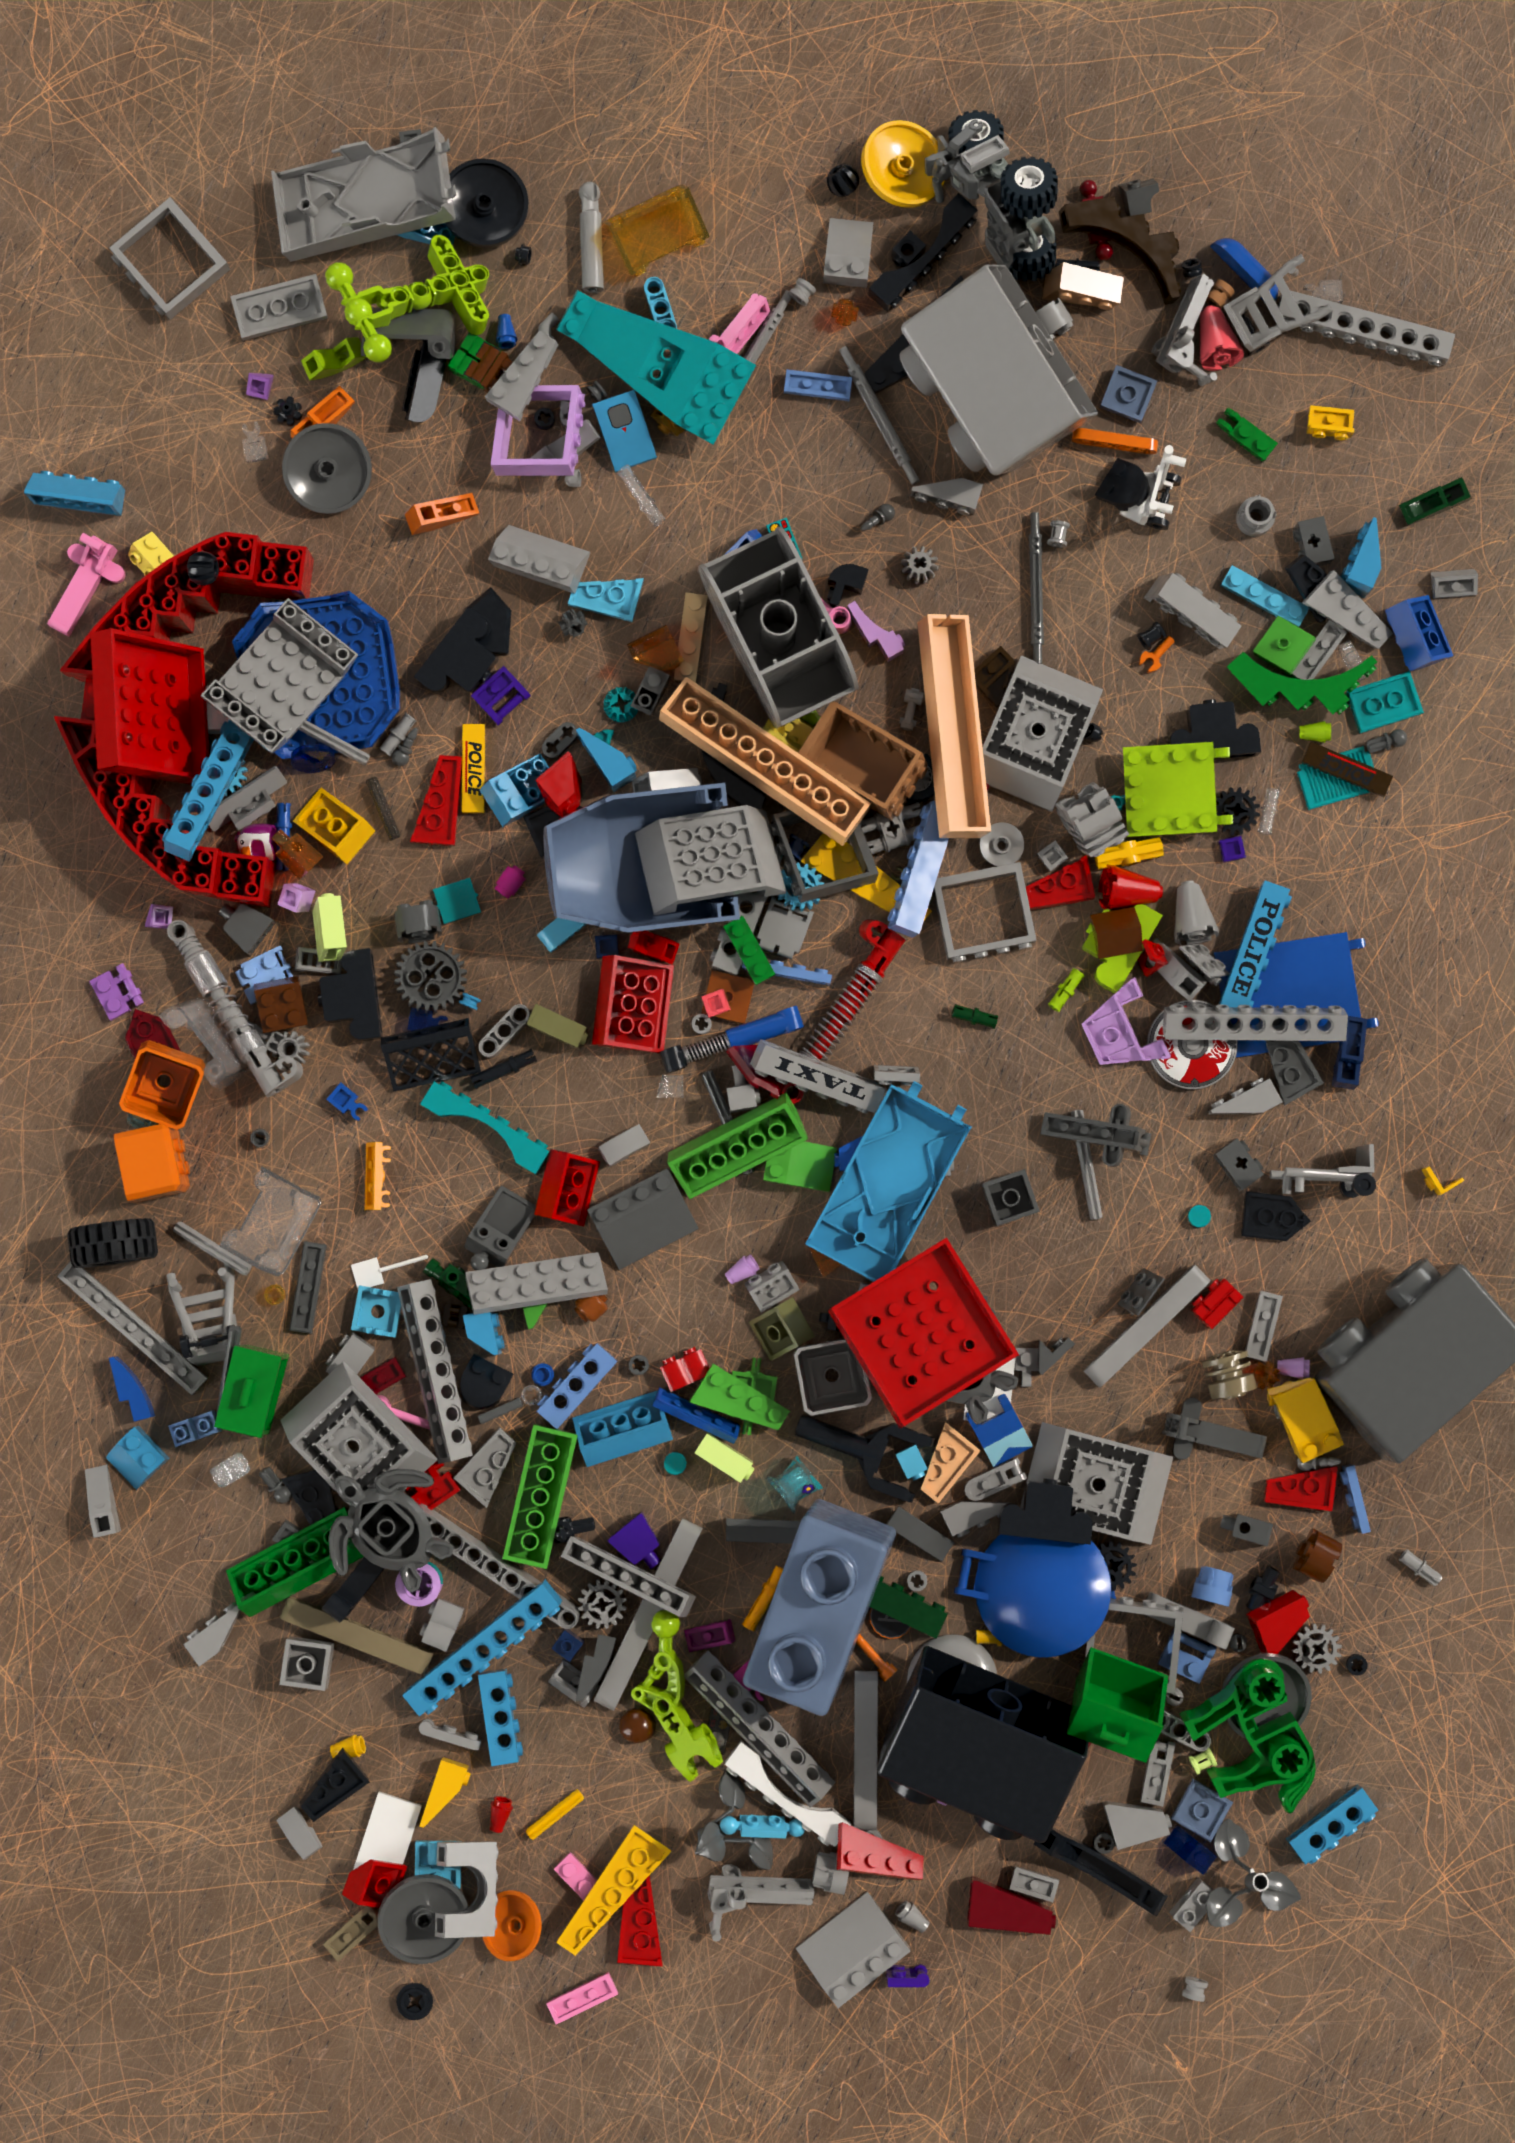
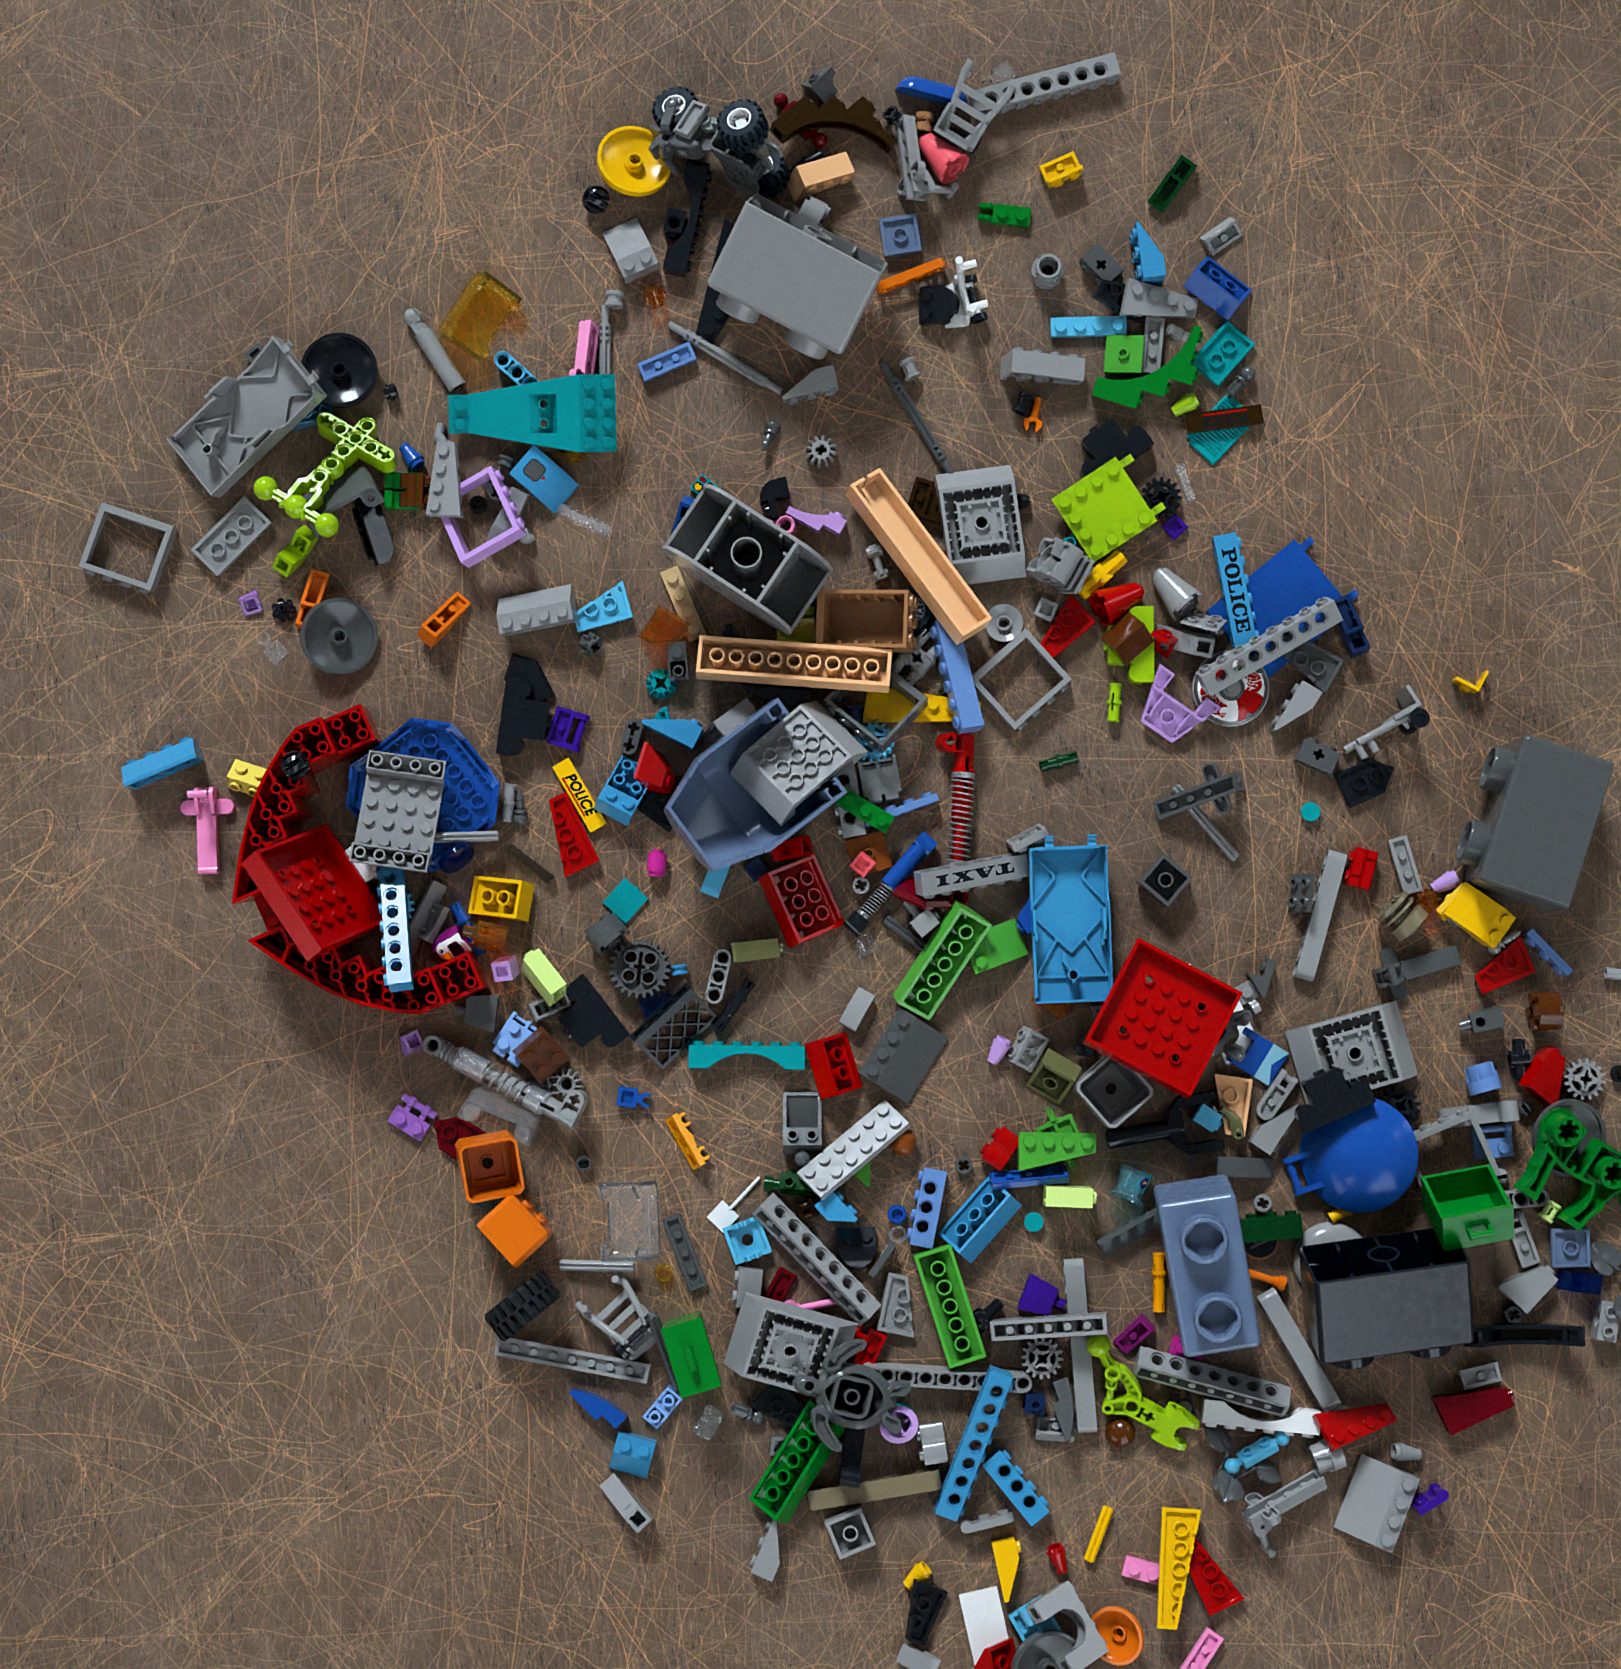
camera: 25 degrees left, 0 degrees up
(937, 1482) = (1235, 1121): none -> olive arm

